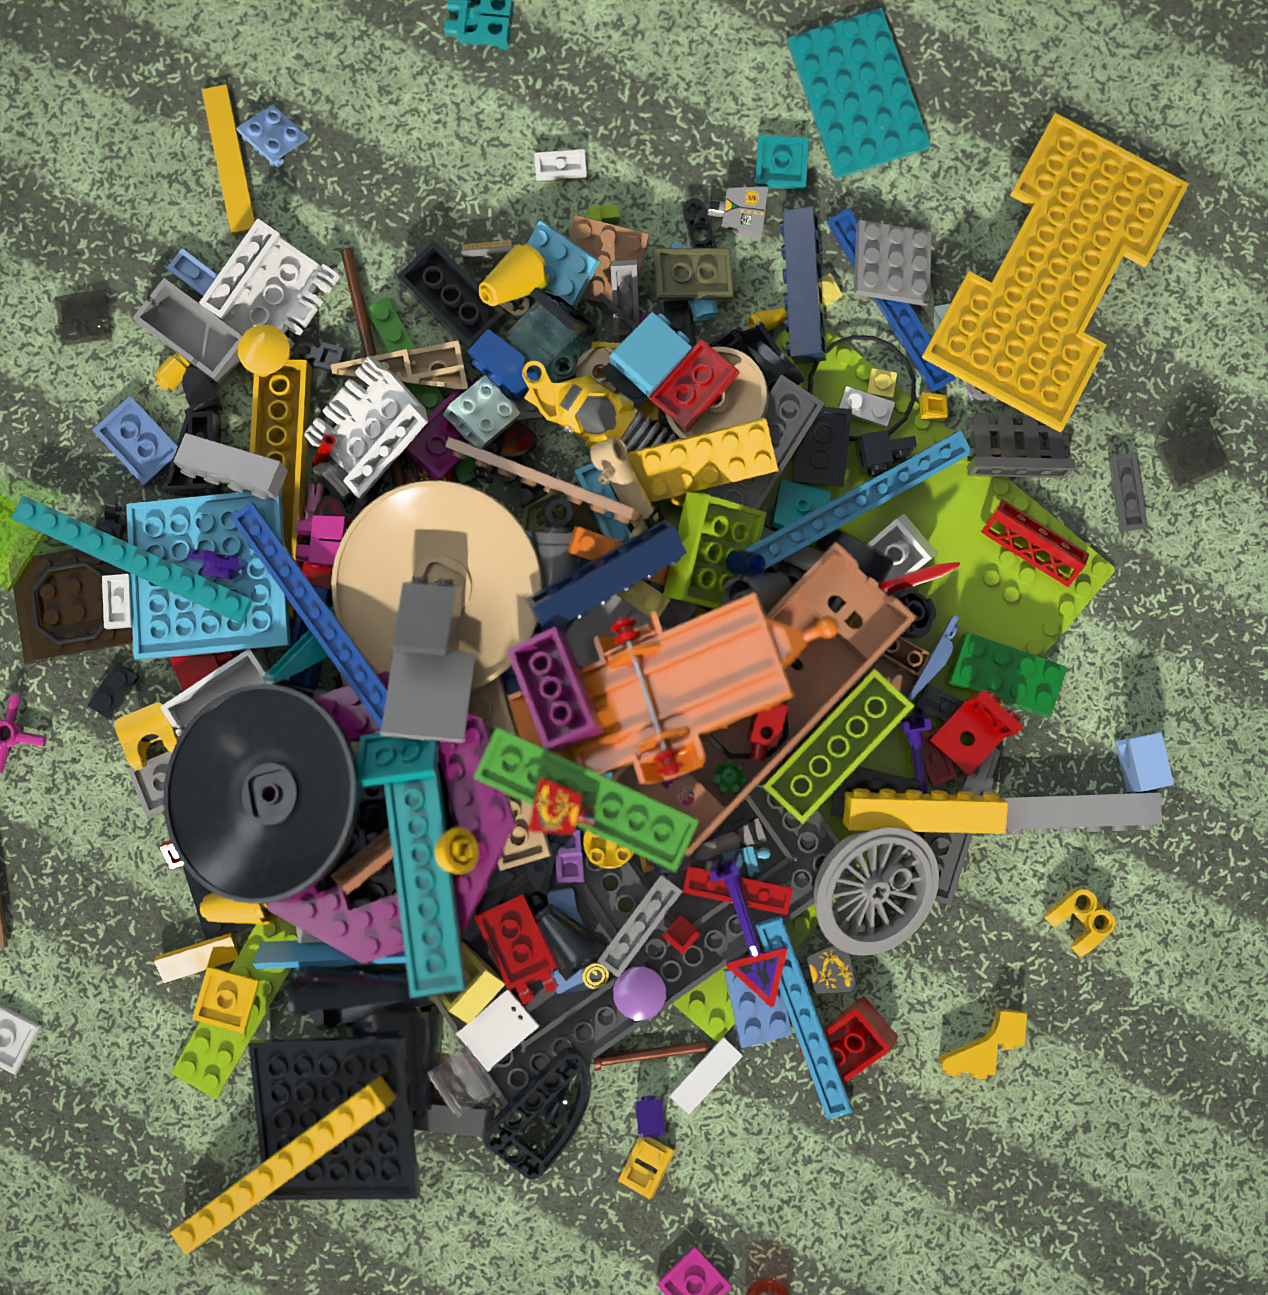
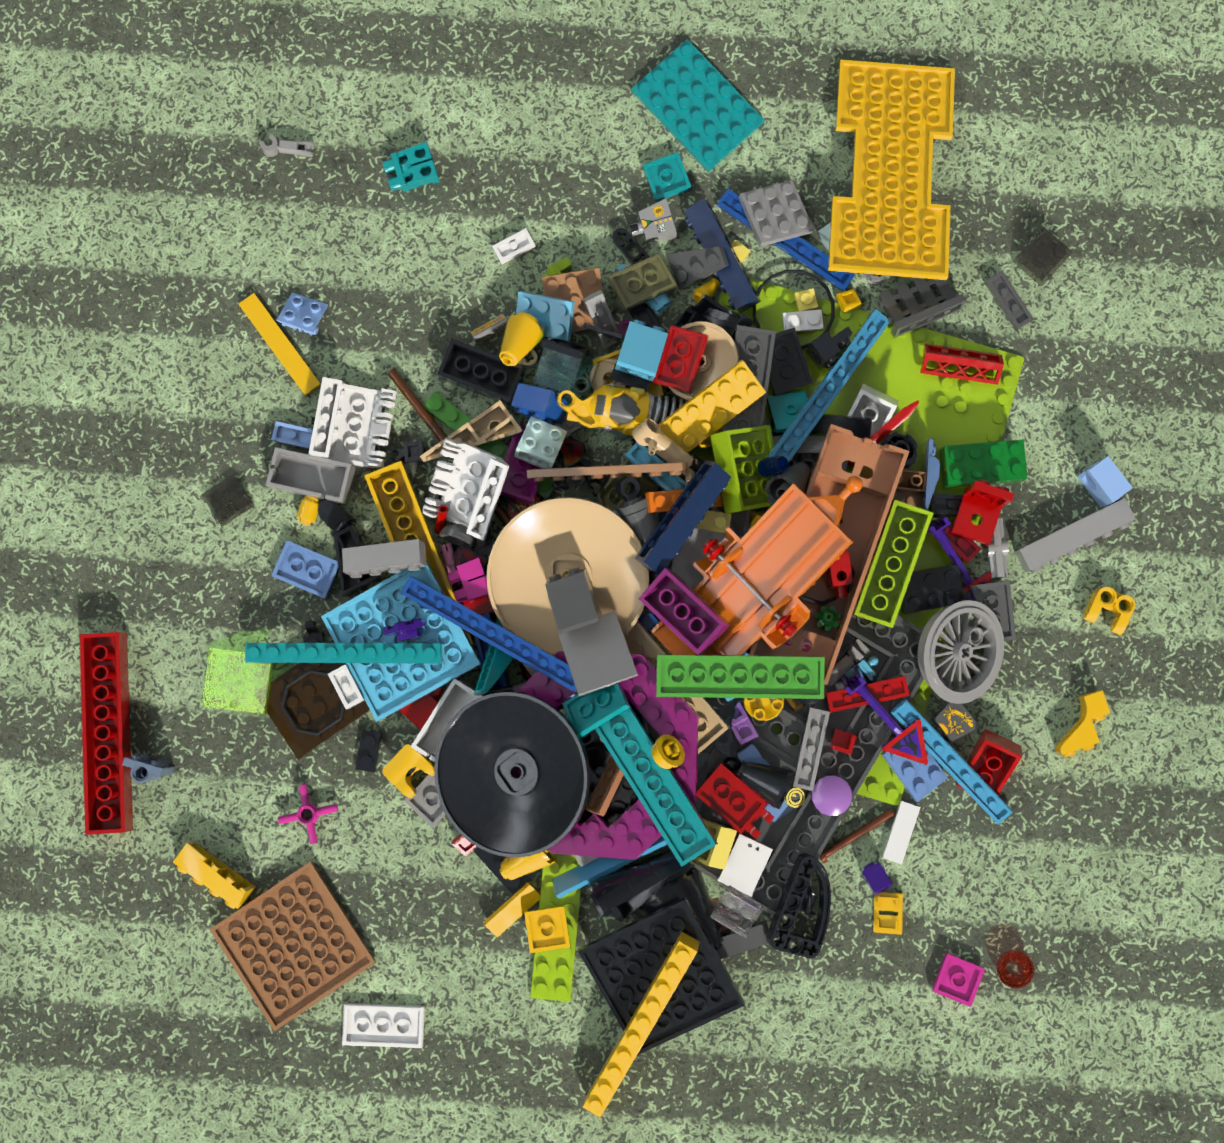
camera: 15 degrees left, 0 degrees up
(263, 349) = (368, 466): yellow dish -> none
(558, 809) = (725, 691): red torso -> none
(768, 282) = (696, 265): none -> dark grey wing
(925, 811) = (972, 582): yellow brick -> none

